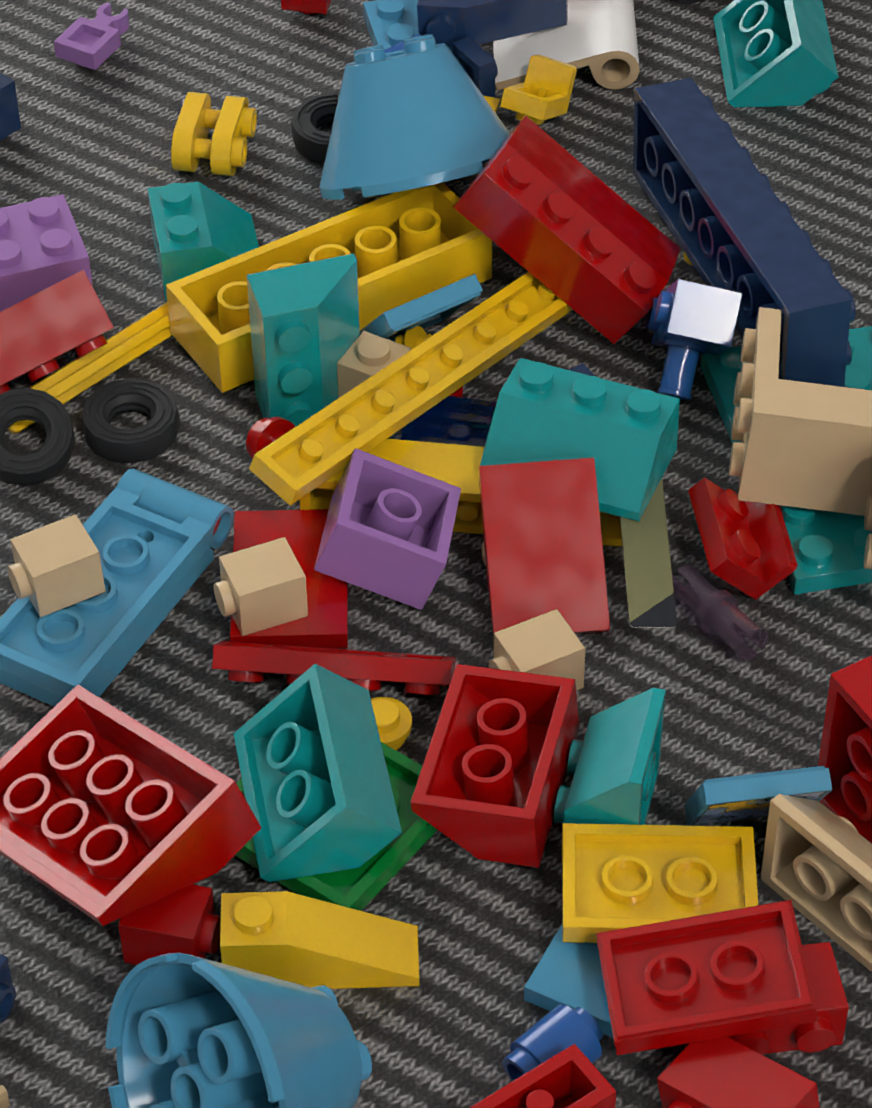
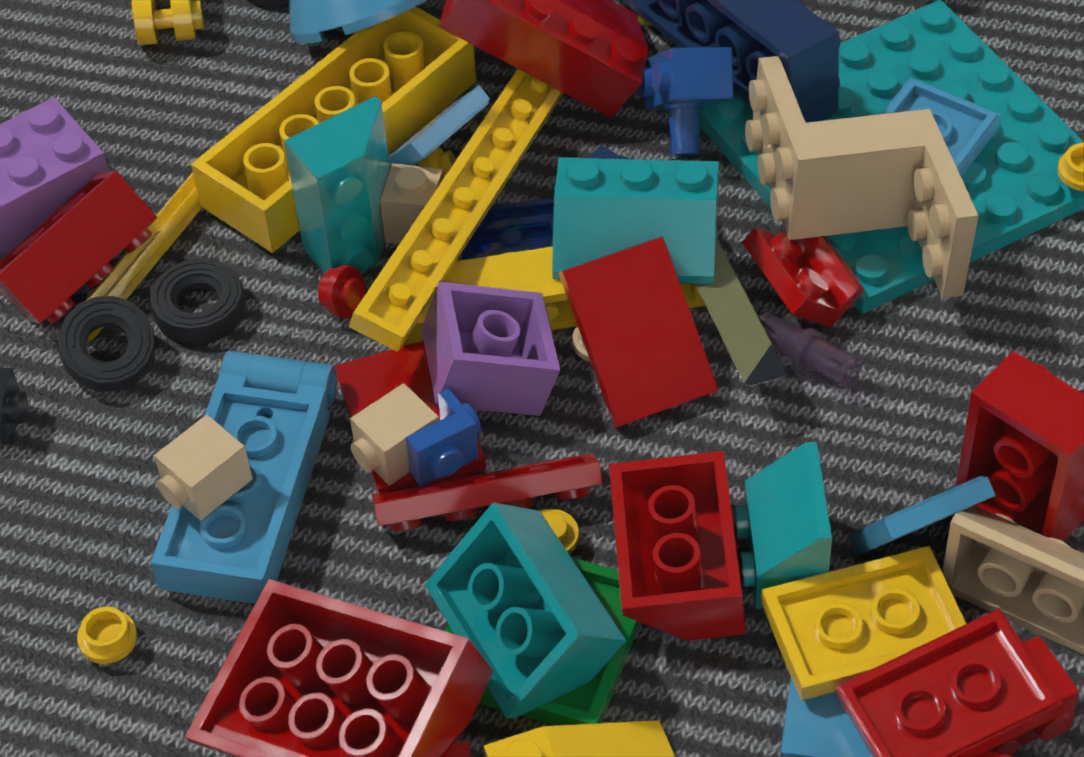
camera: 15 degrees left, 5 degrees up
(196, 229) = (189, 106): teal slope -> none
(307, 606) = (445, 444): none -> blue bracket
(541, 647) = (670, 428): tan brick -> none

